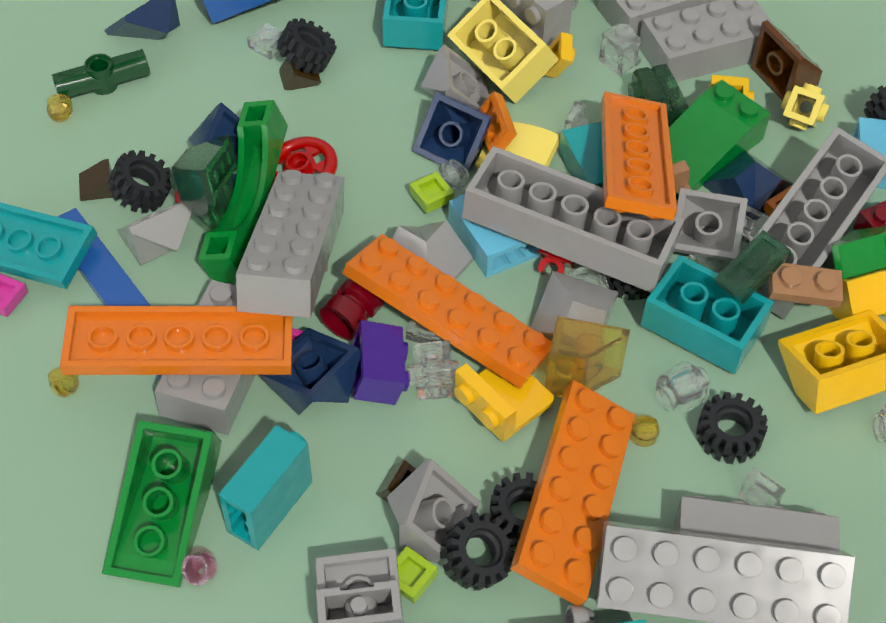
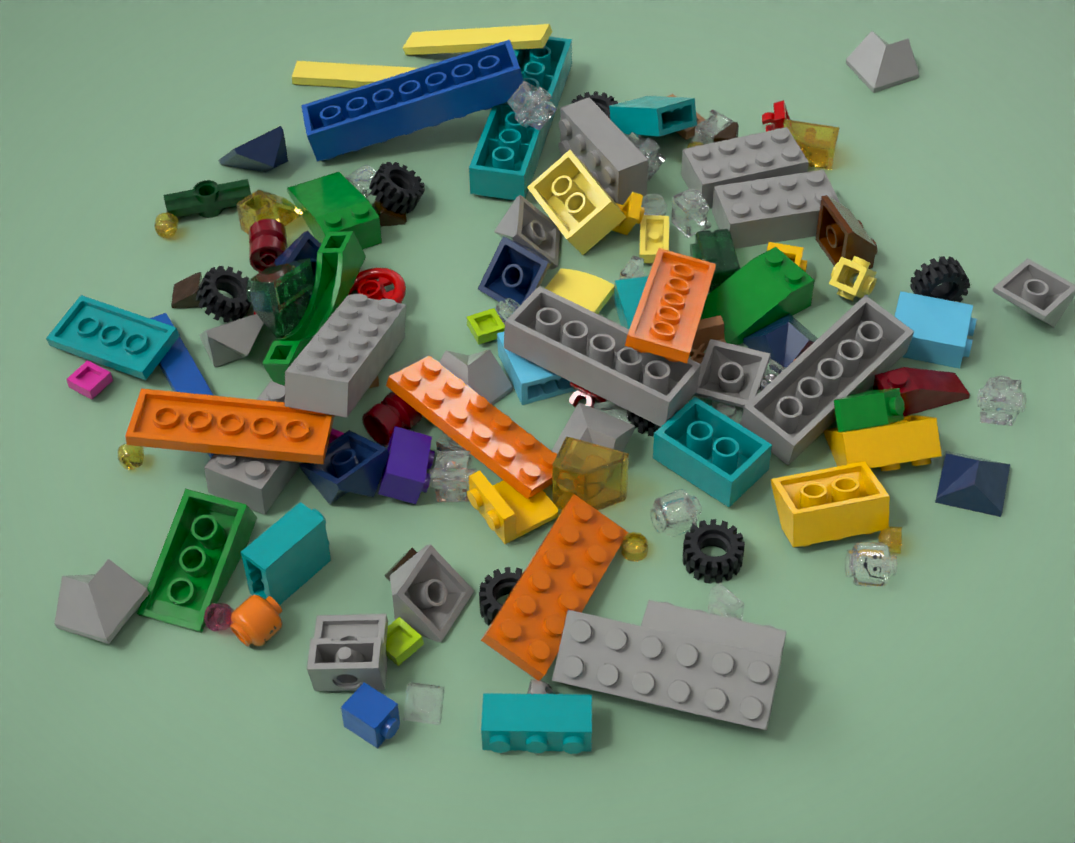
camera: 10 degrees right, 5 degrees down
(55, 567) = (98, 602): none -> light grey slope
(168, 86) = (266, 206): none -> clear yellow slope
(176, 121) = (266, 243): none -> dark red wheel
(243, 73) = (336, 206): none -> green slope
(244, 568) = (256, 620): none -> orange head
(459, 561) = (446, 640): black tyre -> none
(501, 128) = (559, 271): orange plate -> none
(582, 45) = (654, 205): none -> clear plate
(588, 79) = (653, 235): none -> light yellow plate
(752, 266) = (755, 411): clear green plate -> none
(806, 285) = (803, 432): medium nougat plate -> none

